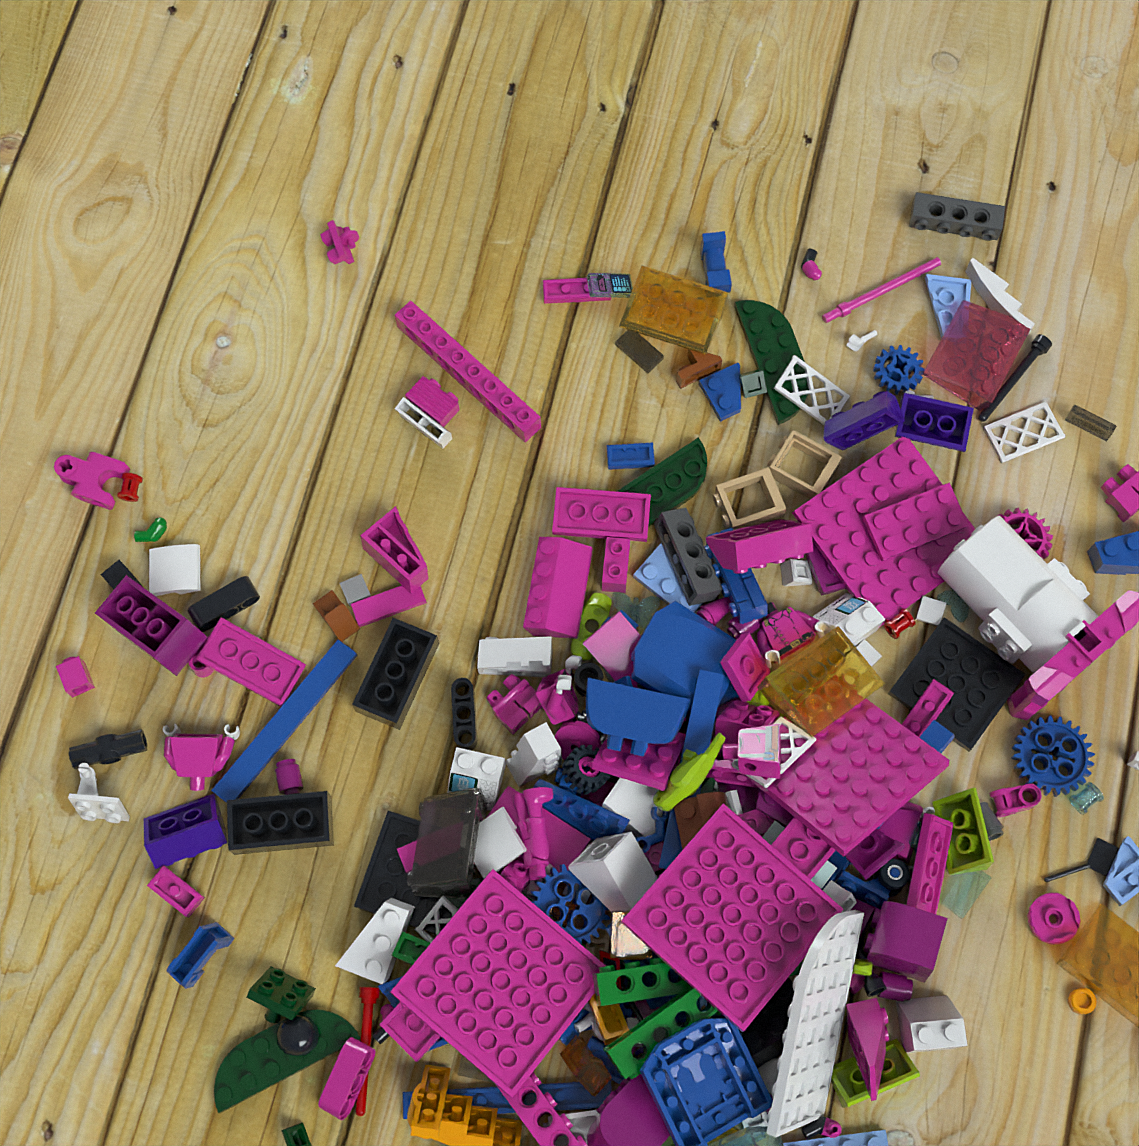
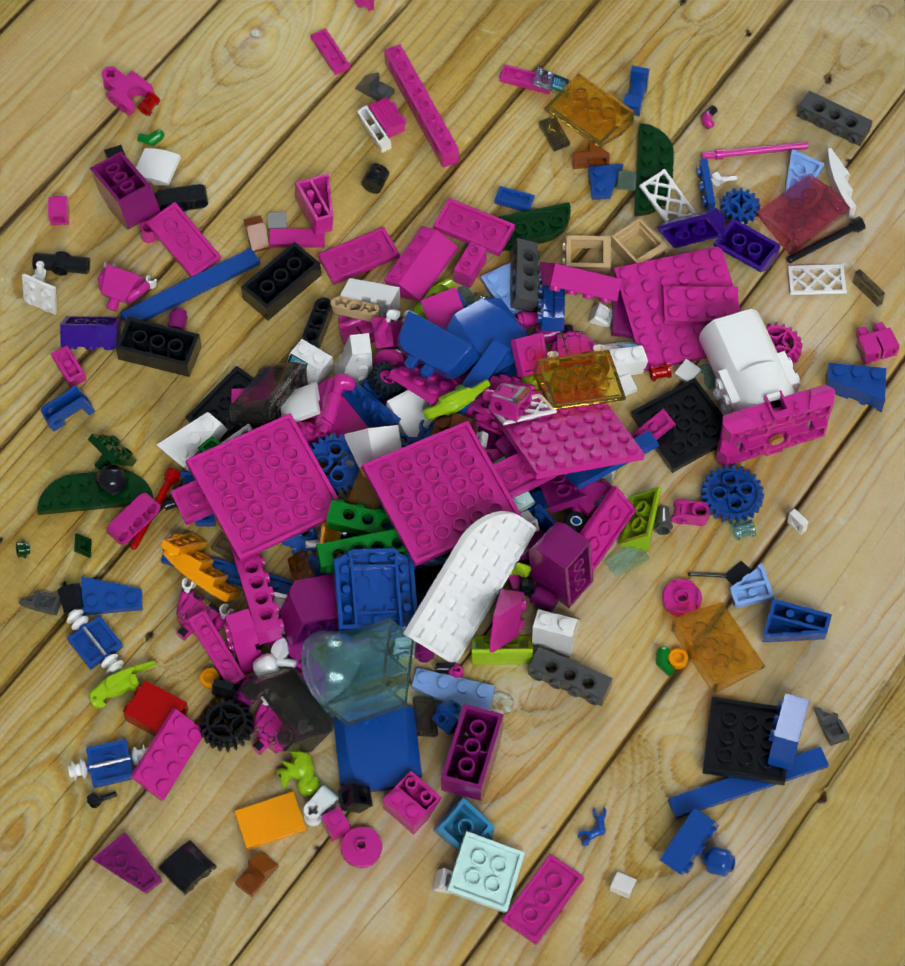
camera: 20 degrees right, 10 degrees down
(325, 335) = (330, 51): none -> dark pink tile
(399, 366) = (374, 88): none -> dark grey slope
(452, 492) = (374, 181): none -> black piece
(473, 599) = (358, 255): none -> dark pink tile
(514, 686) = (344, 306): none -> tan beam
(848, 357) = (705, 184): none -> blue plate
(1012, 1080) = (564, 667): none -> dark grey brick
(1066, 1012) = (662, 661): none -> green arm

